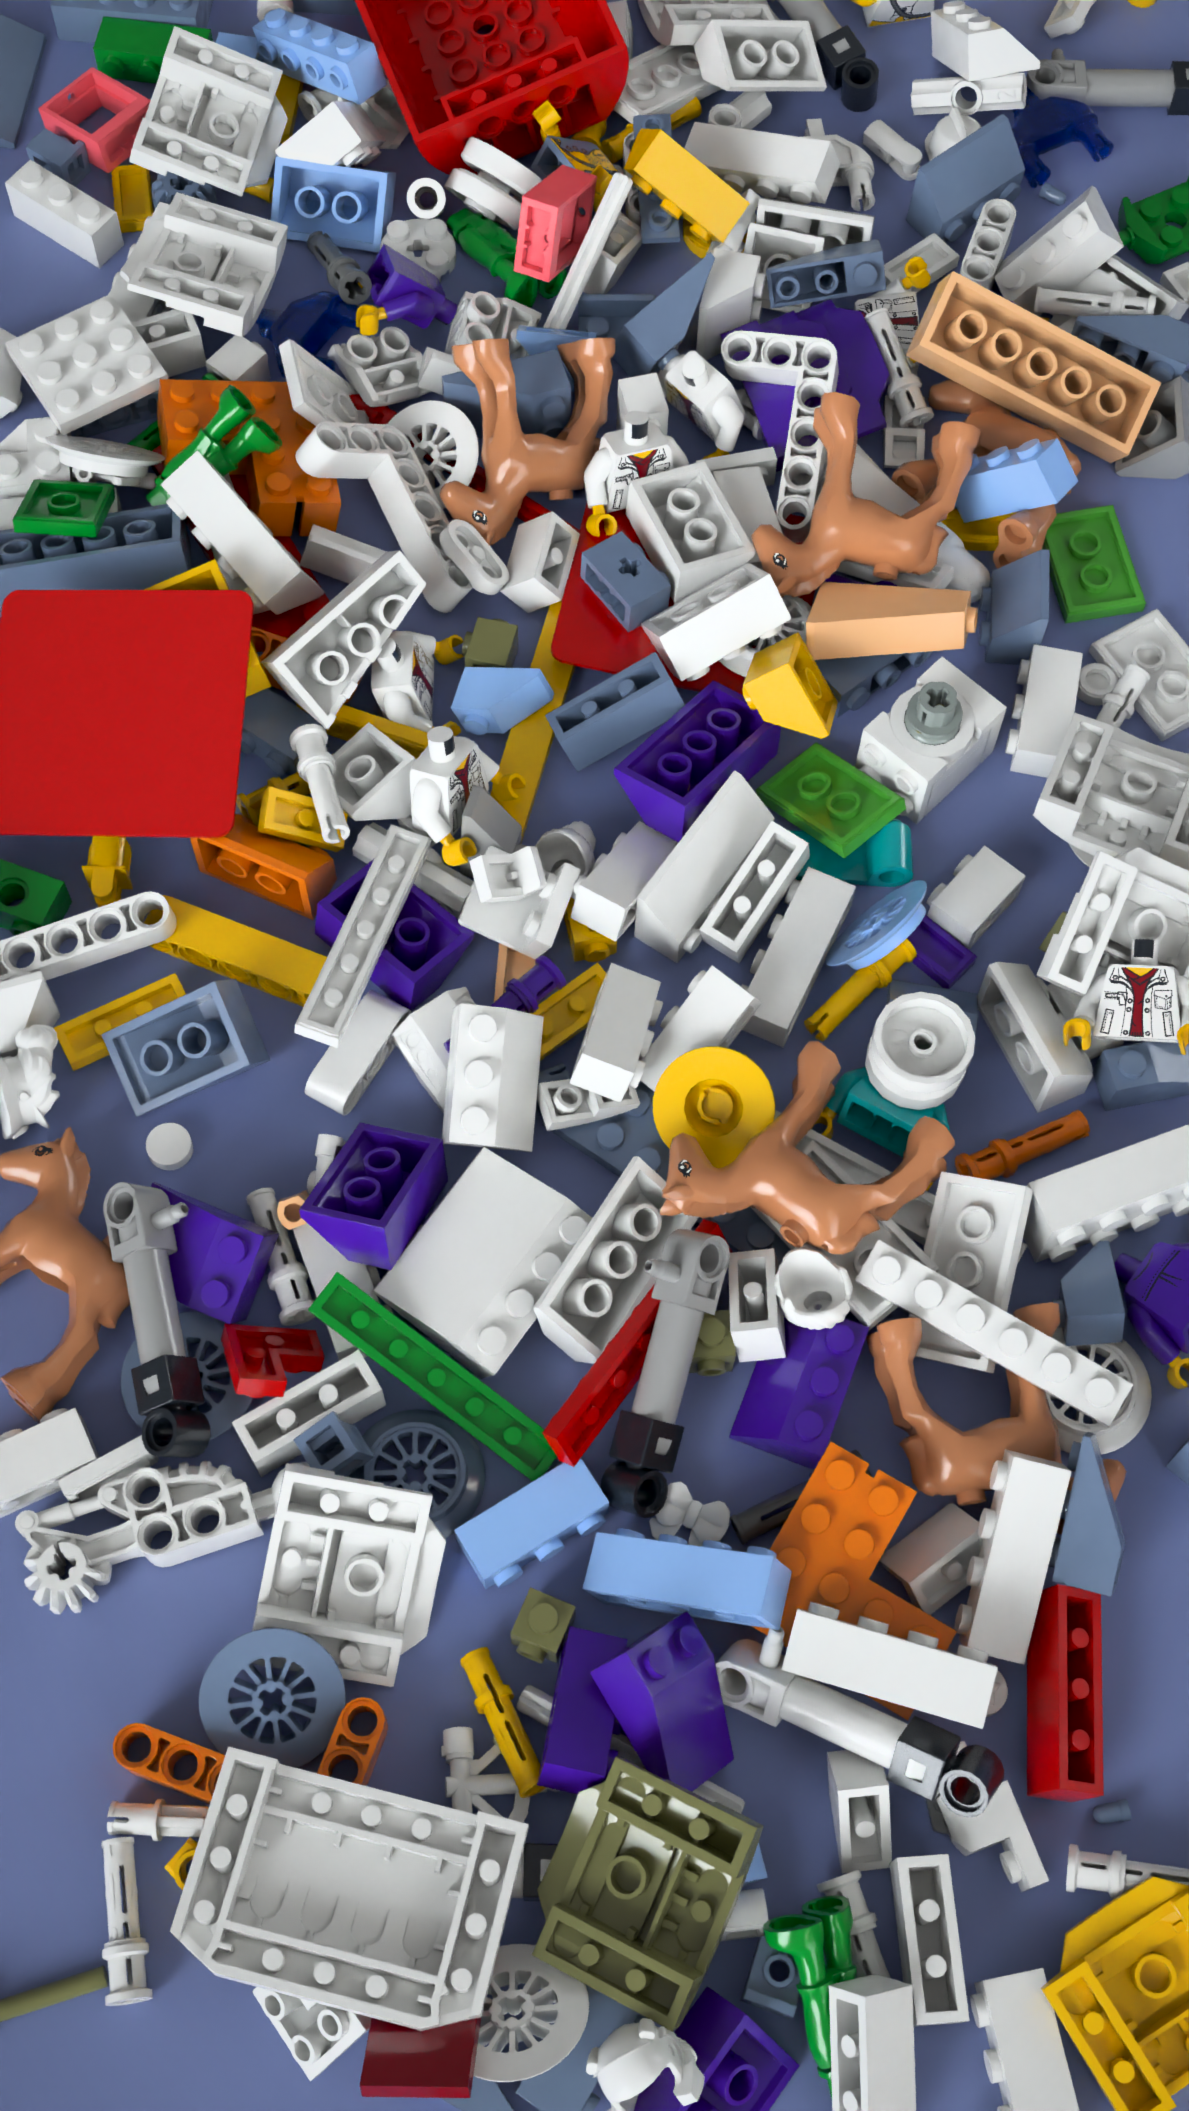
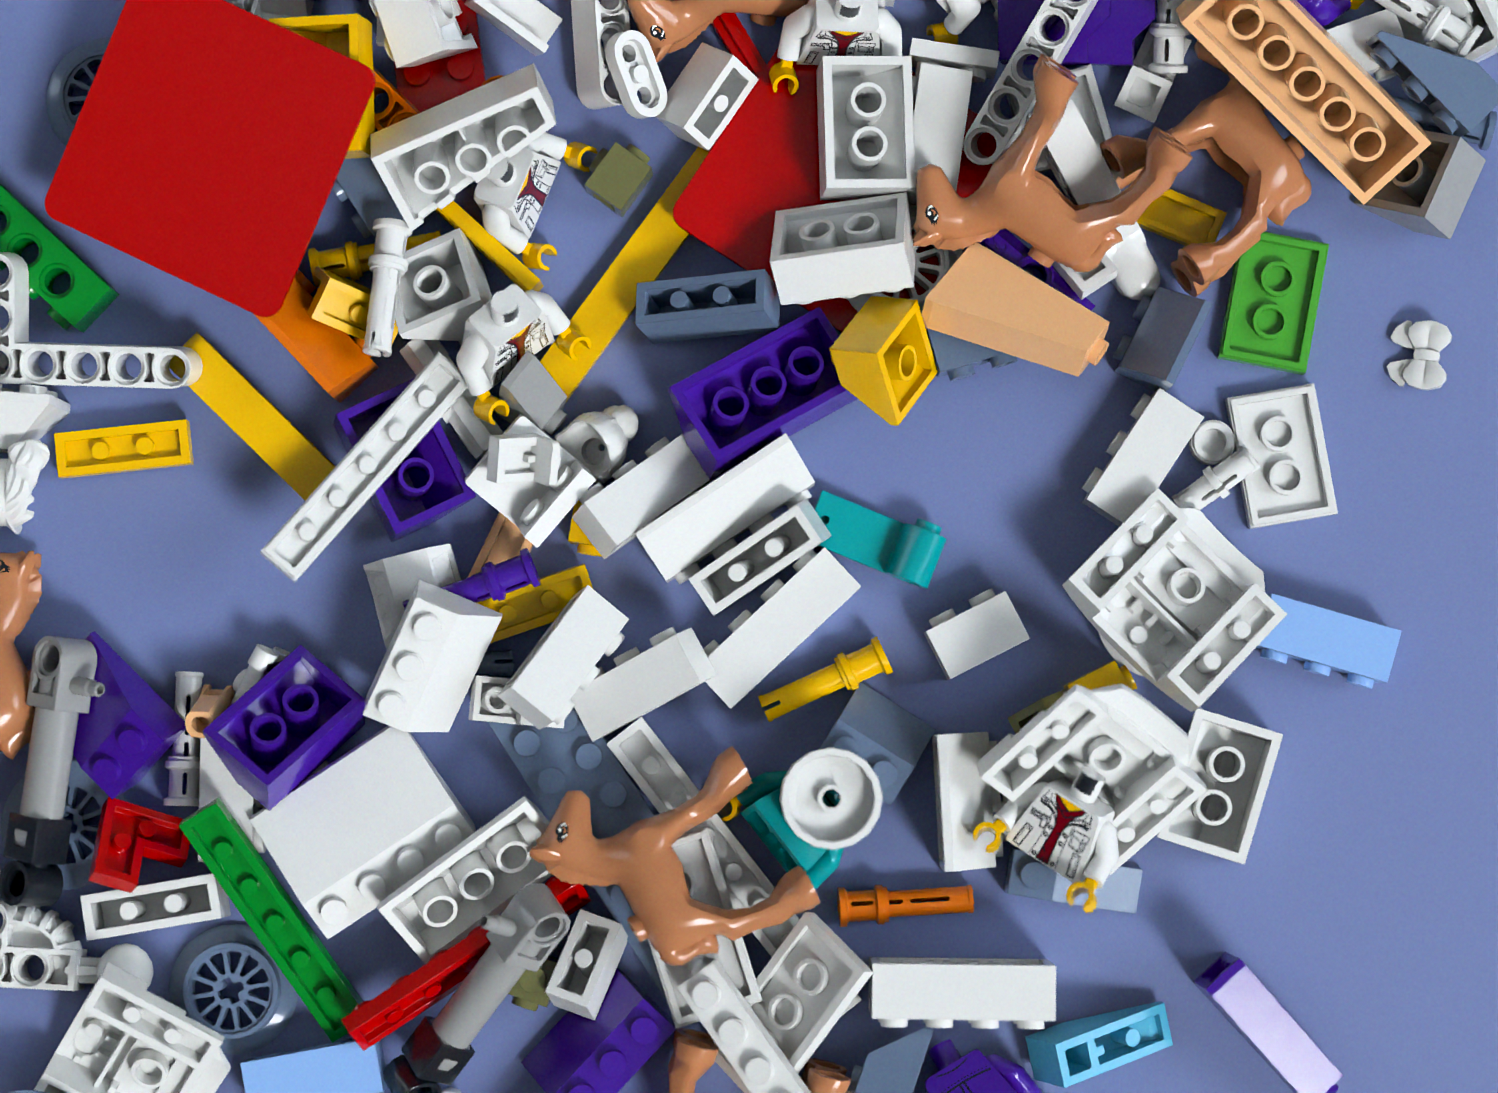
camera: 25 degrees right, 20 degrees up
(108, 868) = (155, 293): yellow arm -> none
(169, 1146) = (124, 590): white tile -> none
(185, 1046) = (170, 504): sand blue slope -> none
(334, 1446) = (161, 952): sand blue brick -> none
(366, 1044) = (338, 564): white beam -> none
(499, 697) = (600, 240): light blue slope -> none
(625, 580) = (778, 186): sand blue brick -> none
(716, 1099) = (624, 765): yellow hat -> none
(811, 1283) = (629, 971): white piece -> none
(830, 799) = (881, 479): bright green tile -> none
(880, 928) = (861, 640): light blue piece -> none
(931, 738) = (1002, 456): white piece -> none
(940, 953) = (913, 663): dark purple tile -> none
(1015, 480) = (1219, 209): light blue brick -> none

